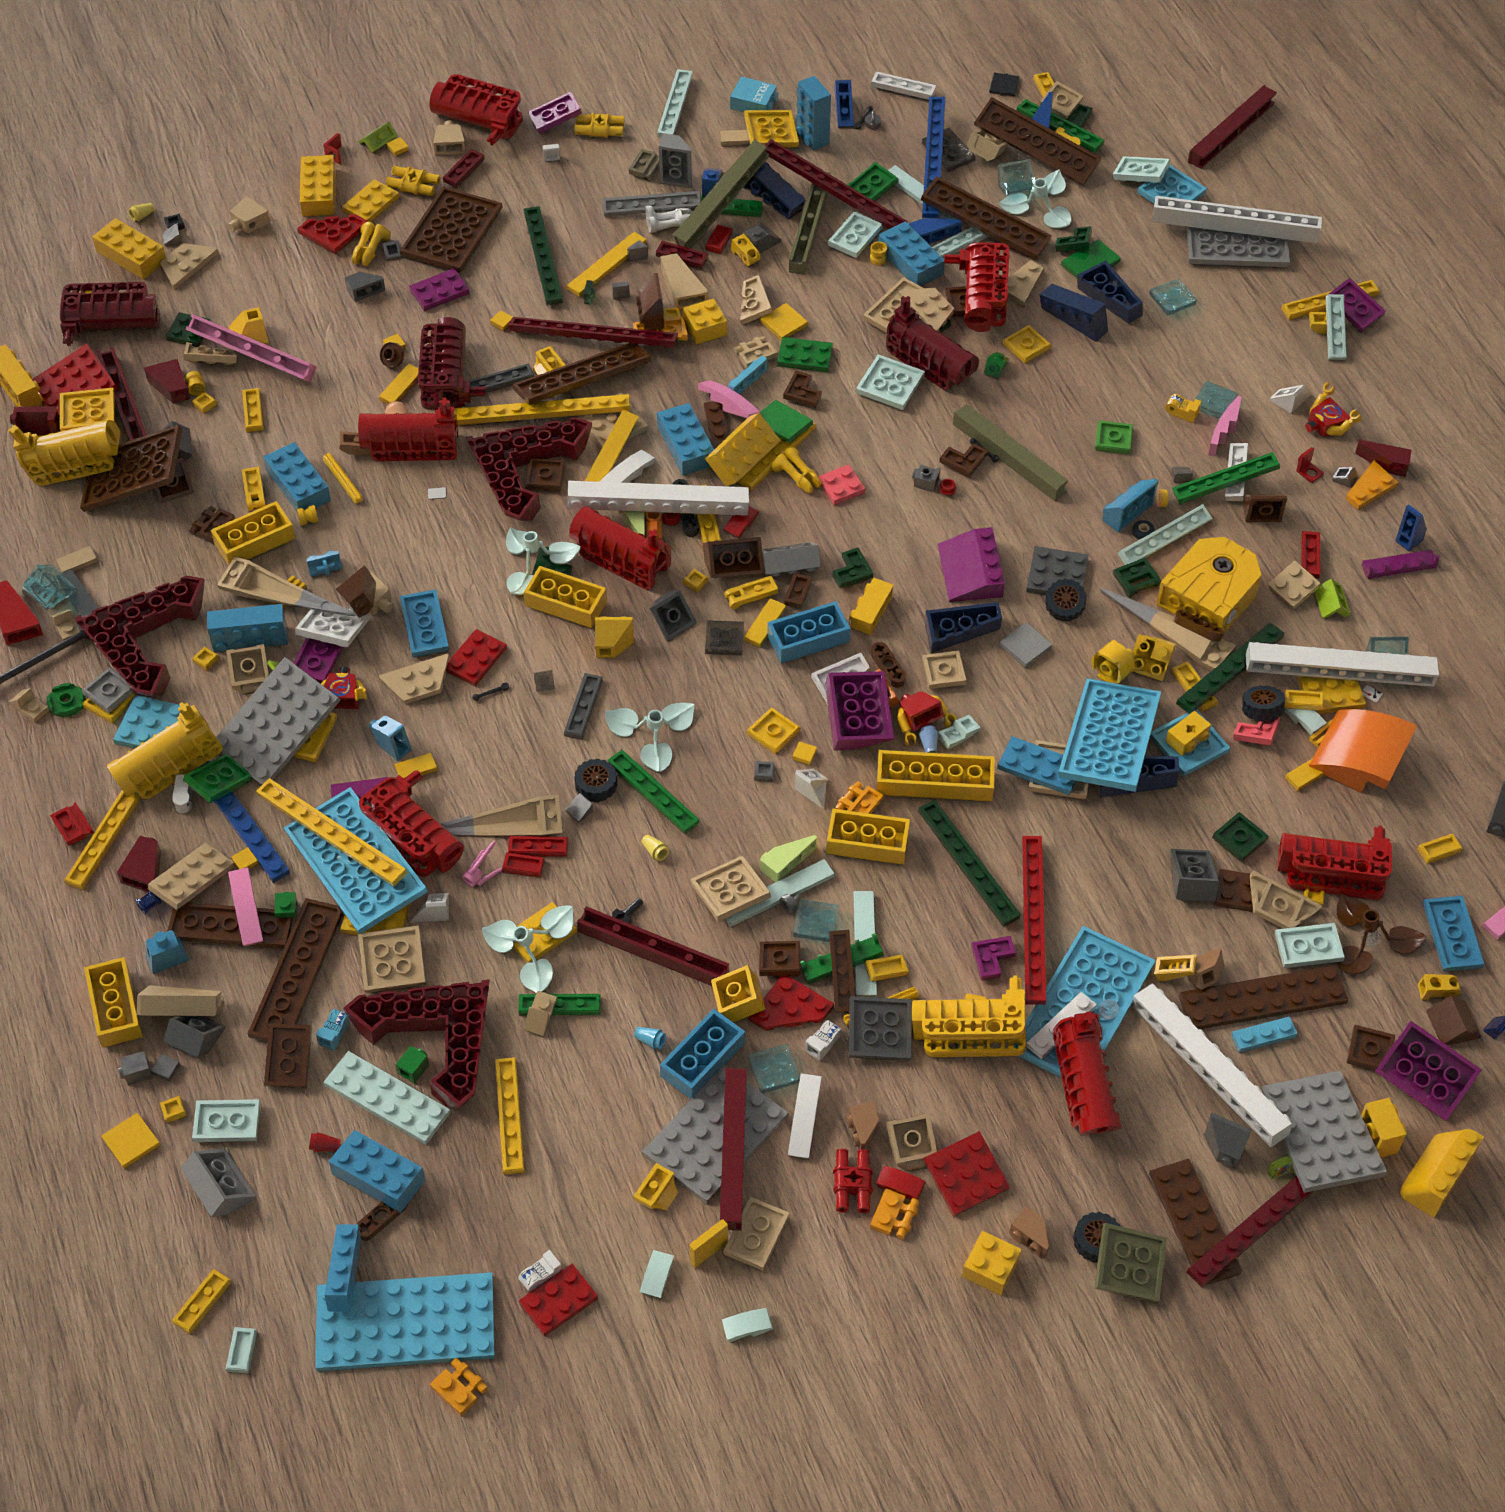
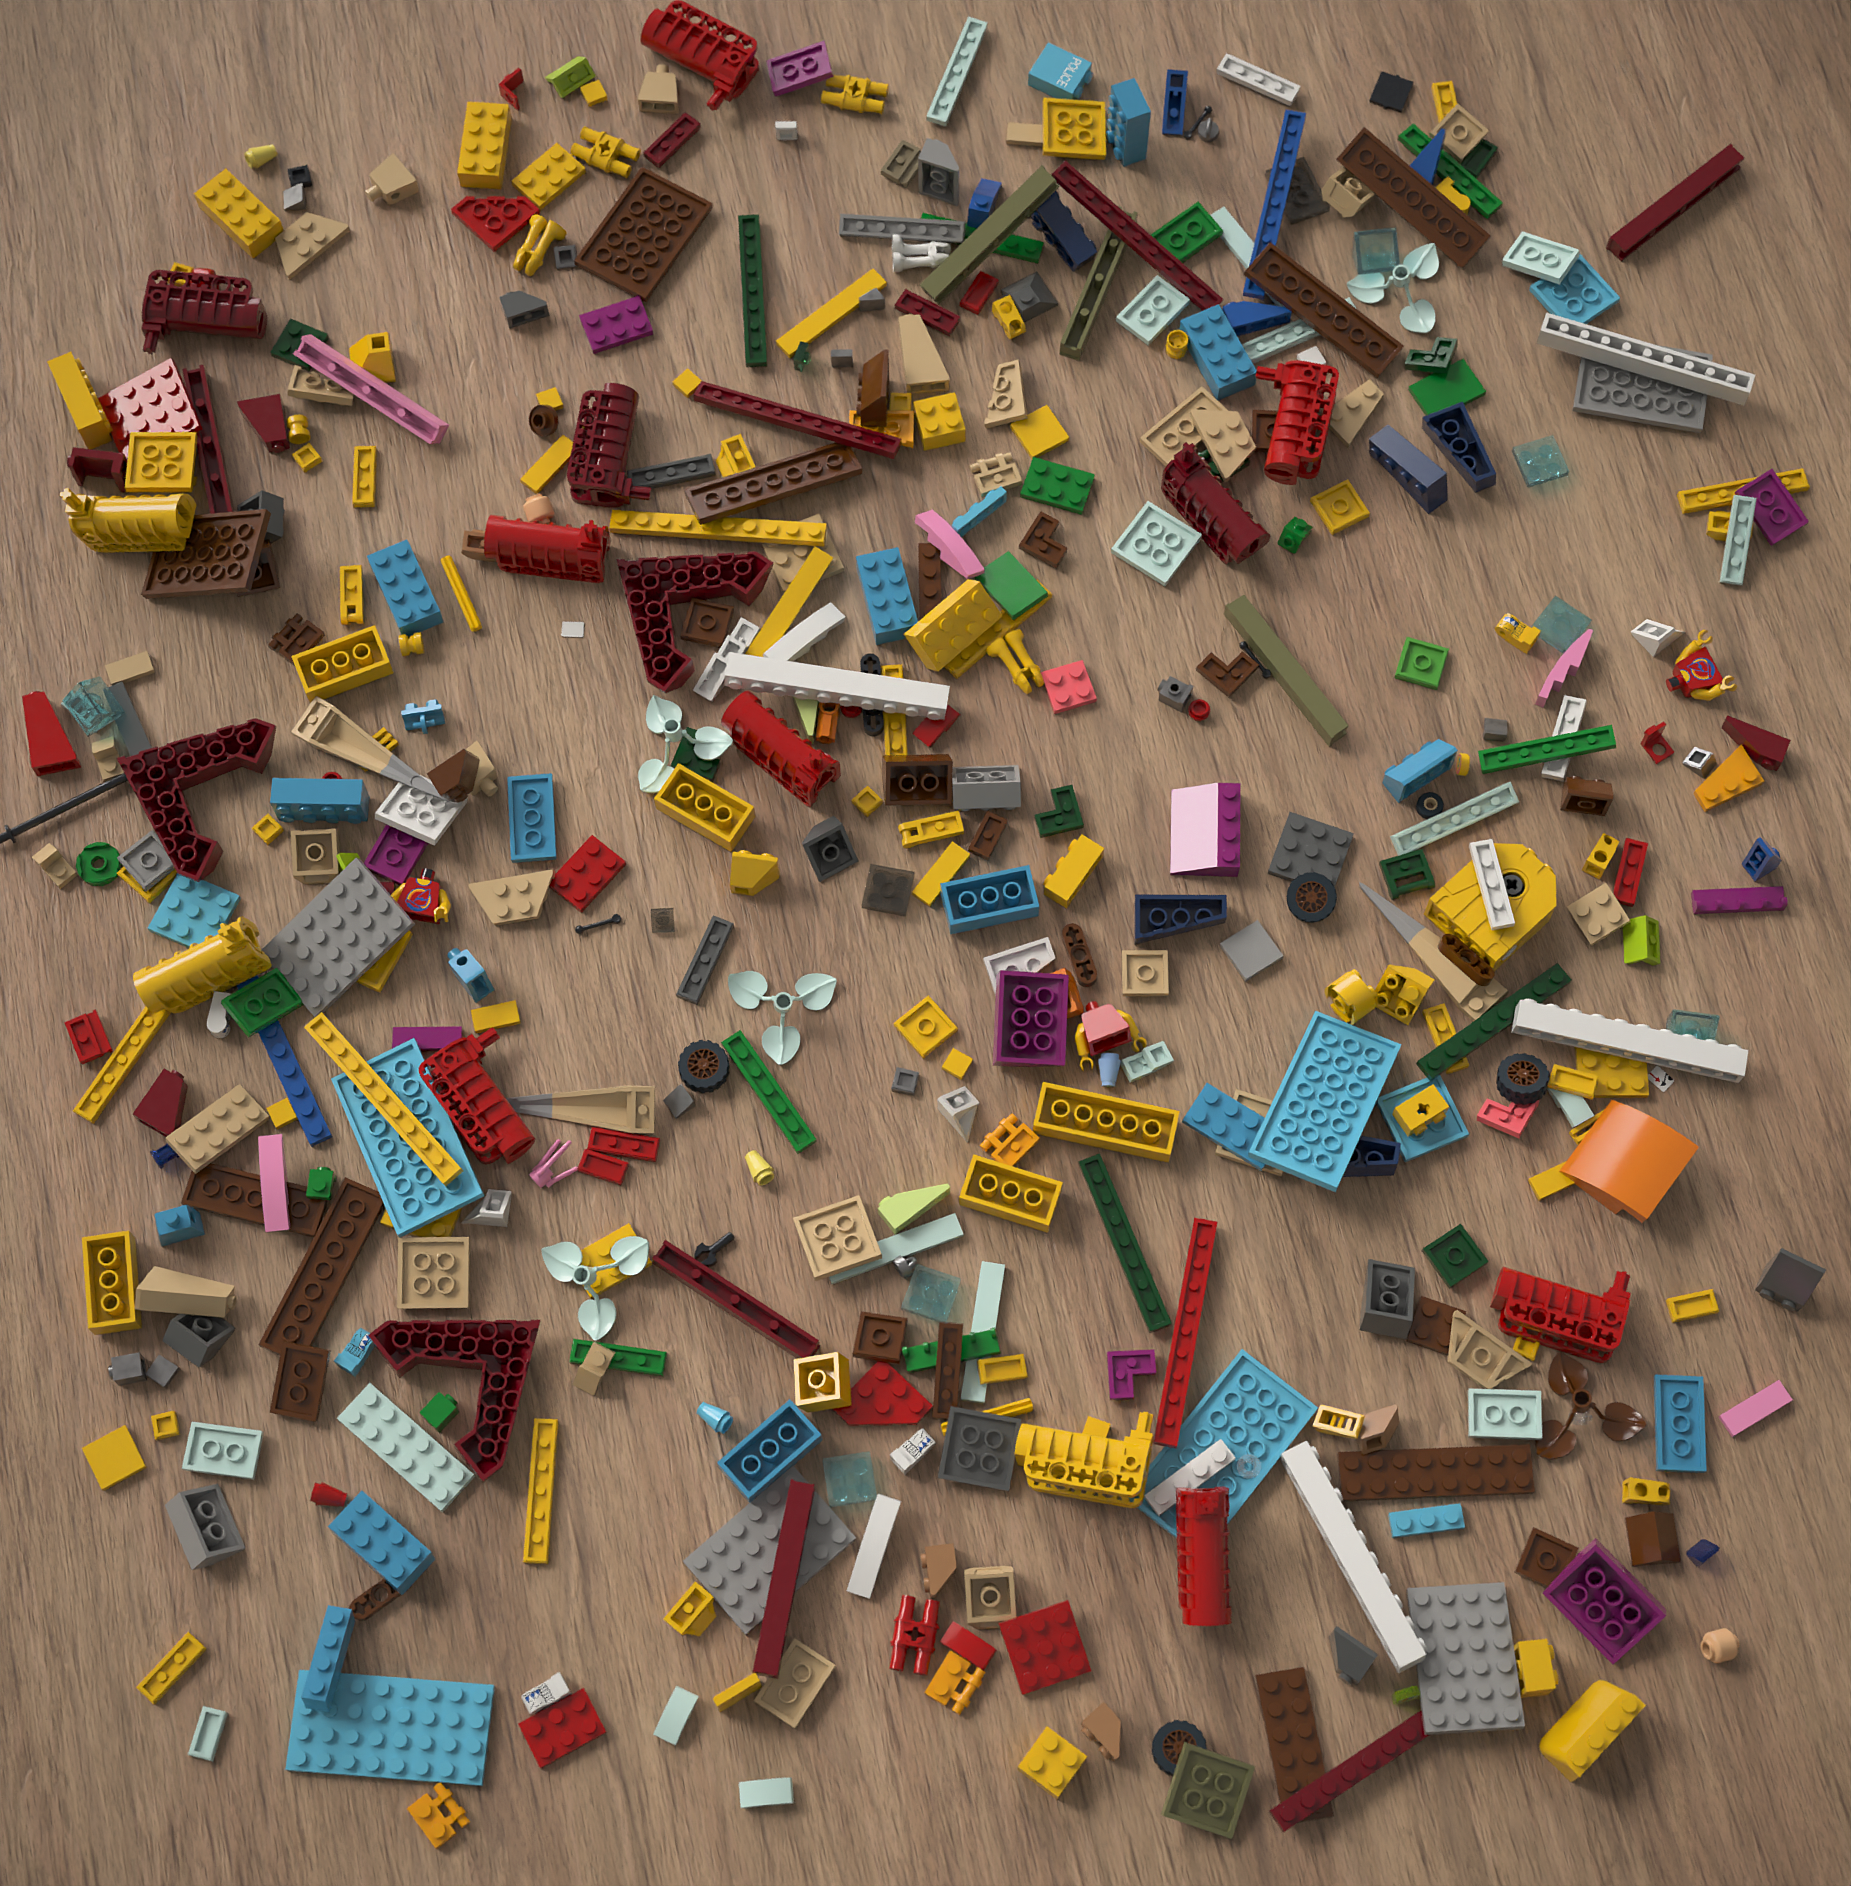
camera: 10 degrees right, 15 degrees up
(558, 505) = (713, 677): none -> white slope
(1208, 564) = (1491, 884): none -> white plate
(1285, 546) = (1600, 856): none -> yellow leg

